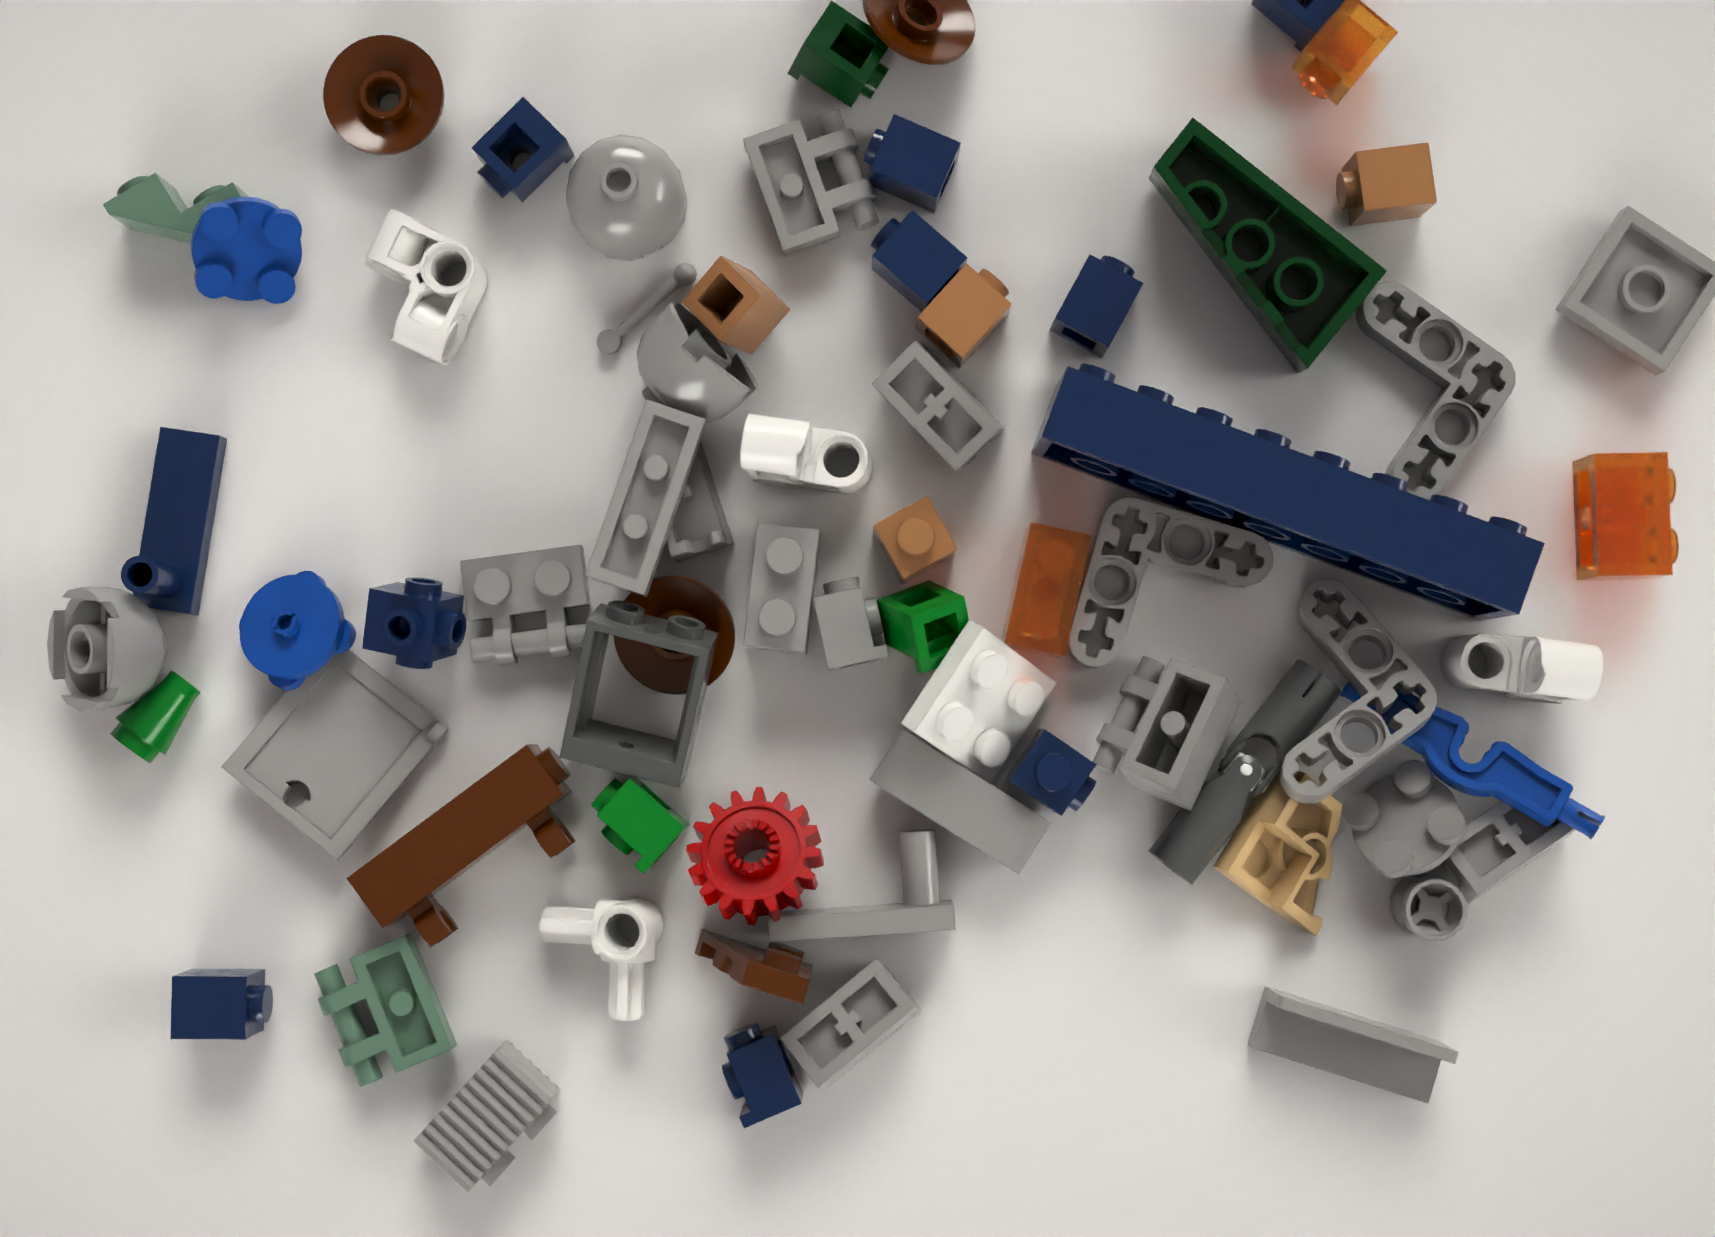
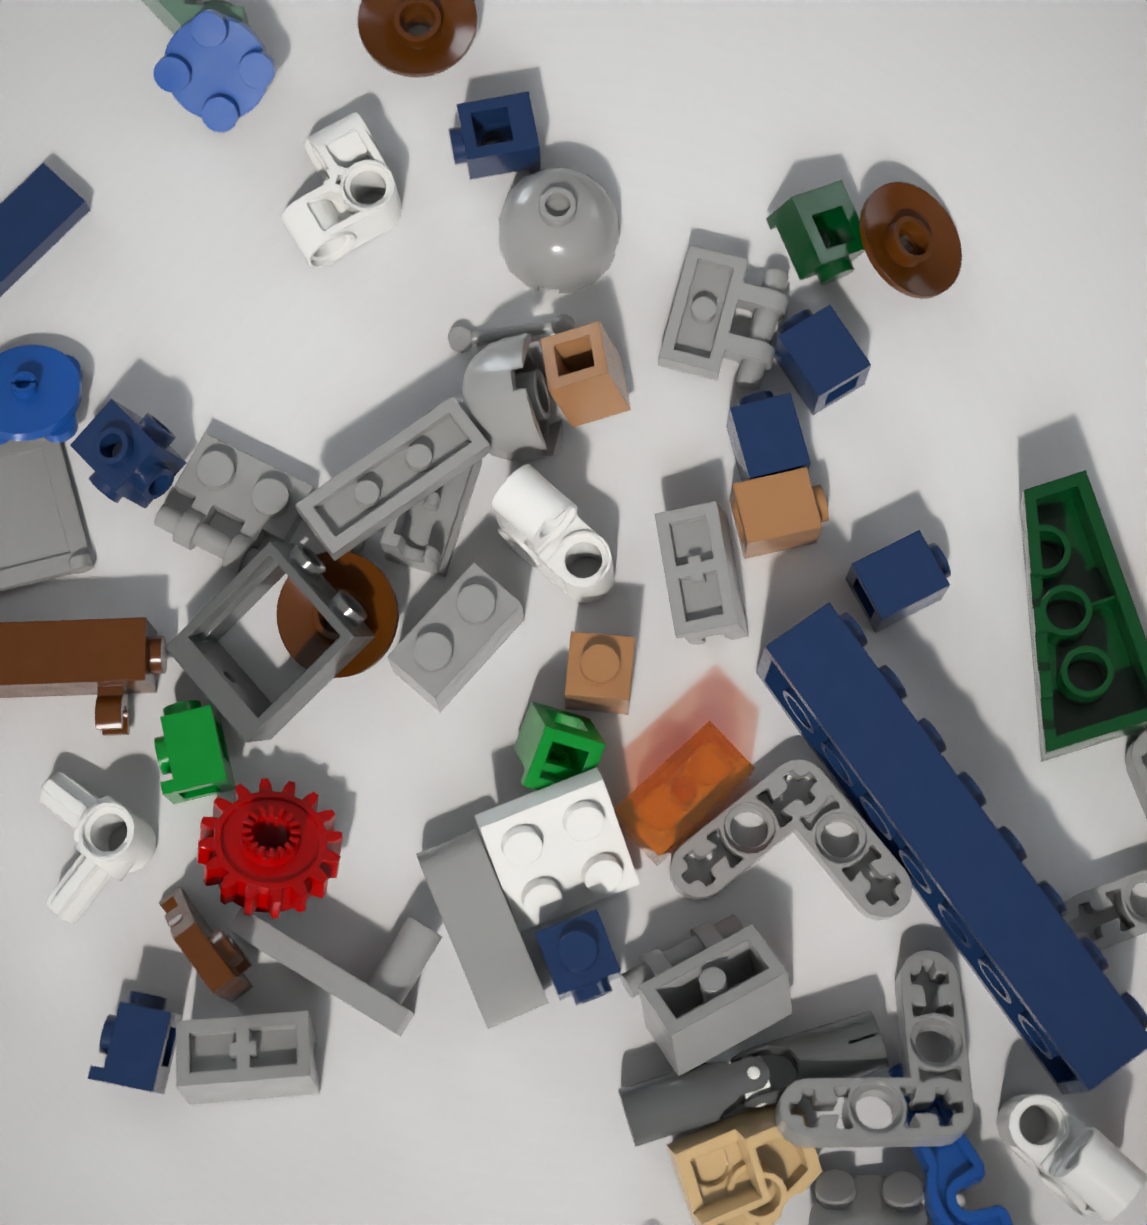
camera: 35 degrees right, 10 degrees down
(848, 625) = (490, 708): light grey brick -> none

